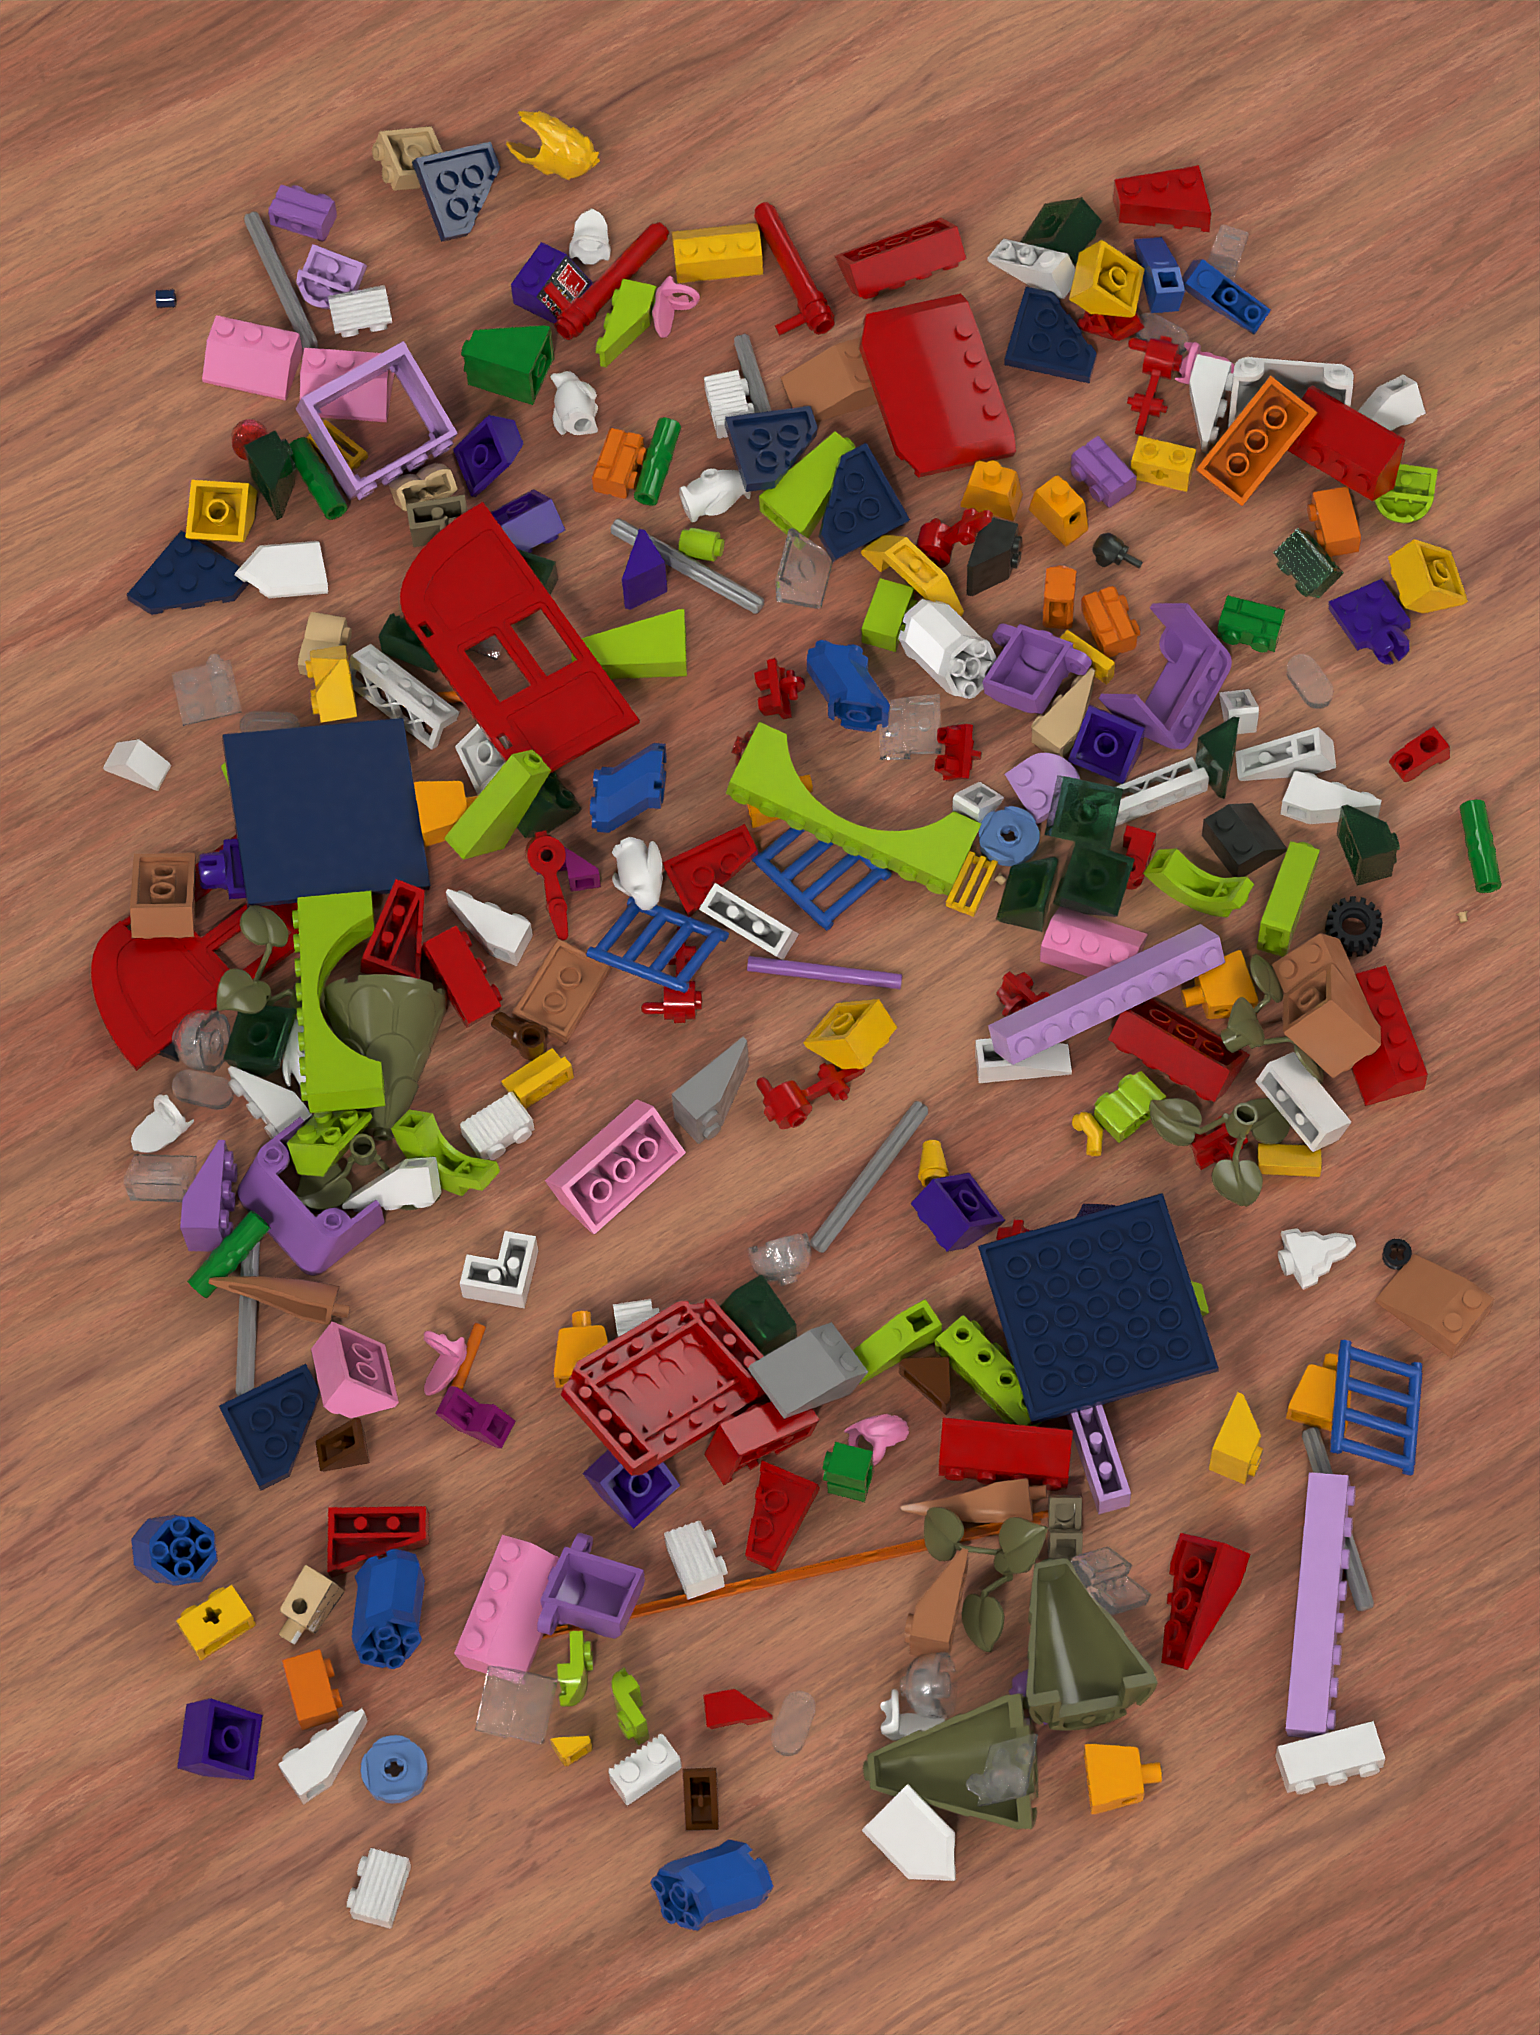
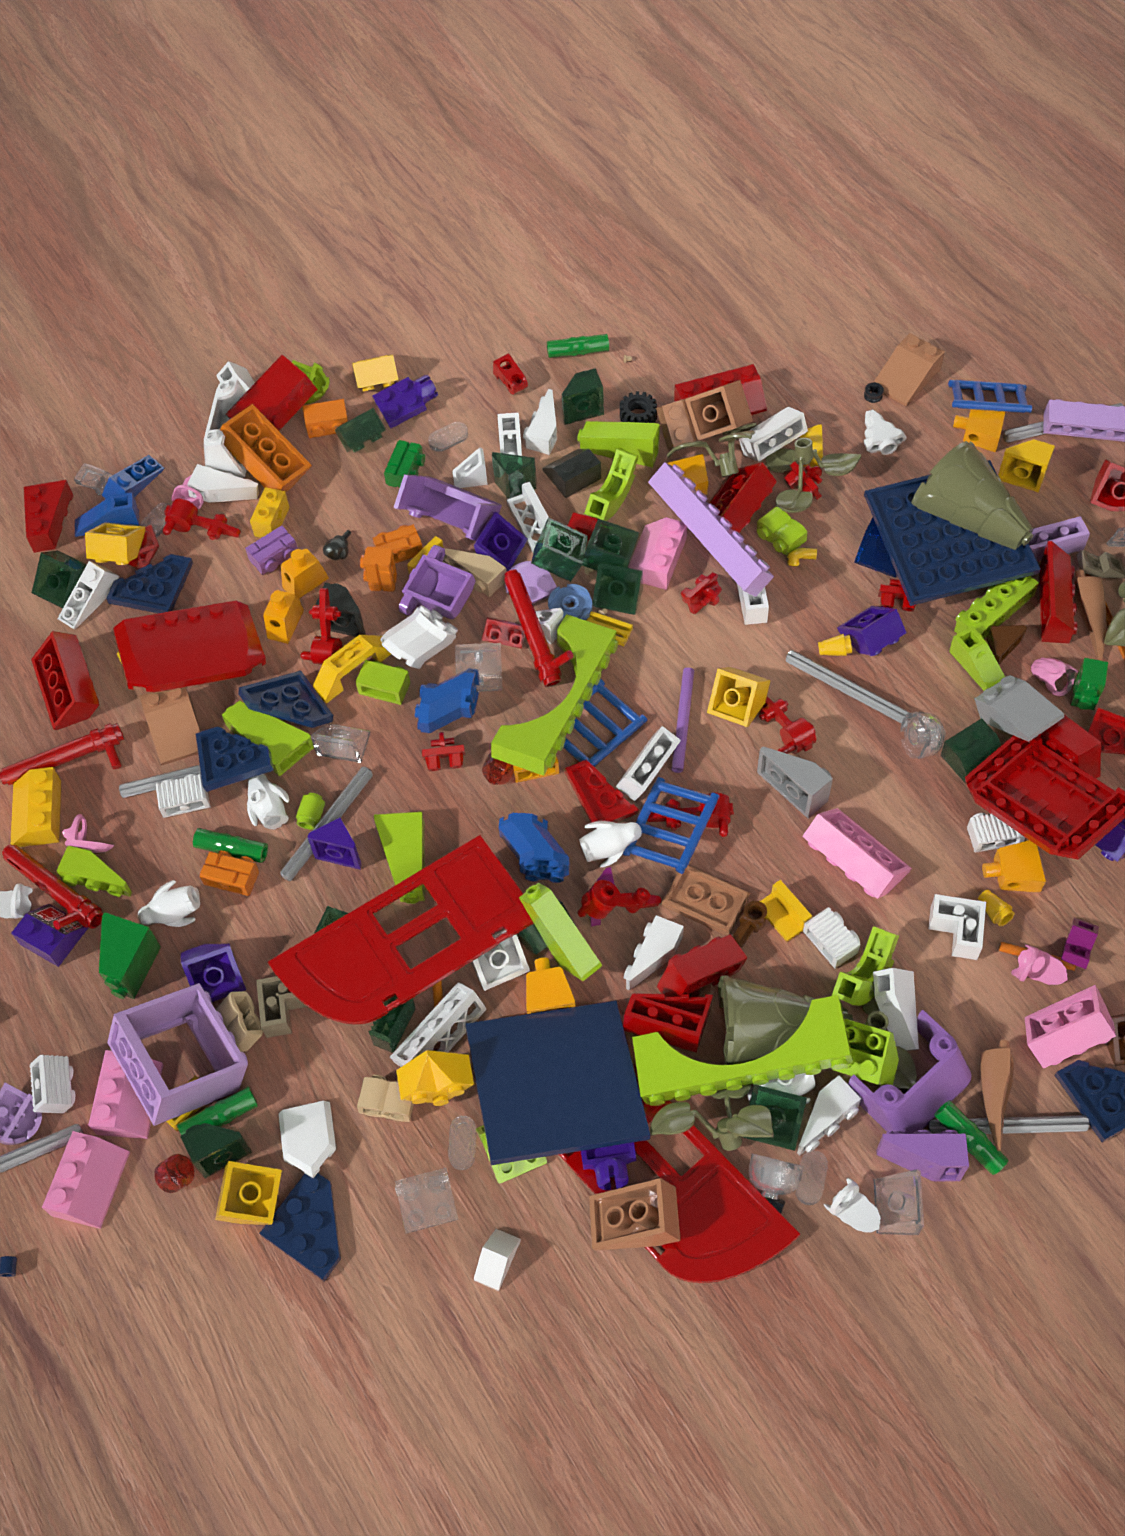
camera: 90 degrees left, 5 degrees down
(528, 1324) = (996, 908): none -> yellow cone
(529, 520) = (272, 936): dark purple slope -> none
(913, 800) = (543, 659): none -> red cylinder
(1143, 1333) = (973, 497): none -> olive cone

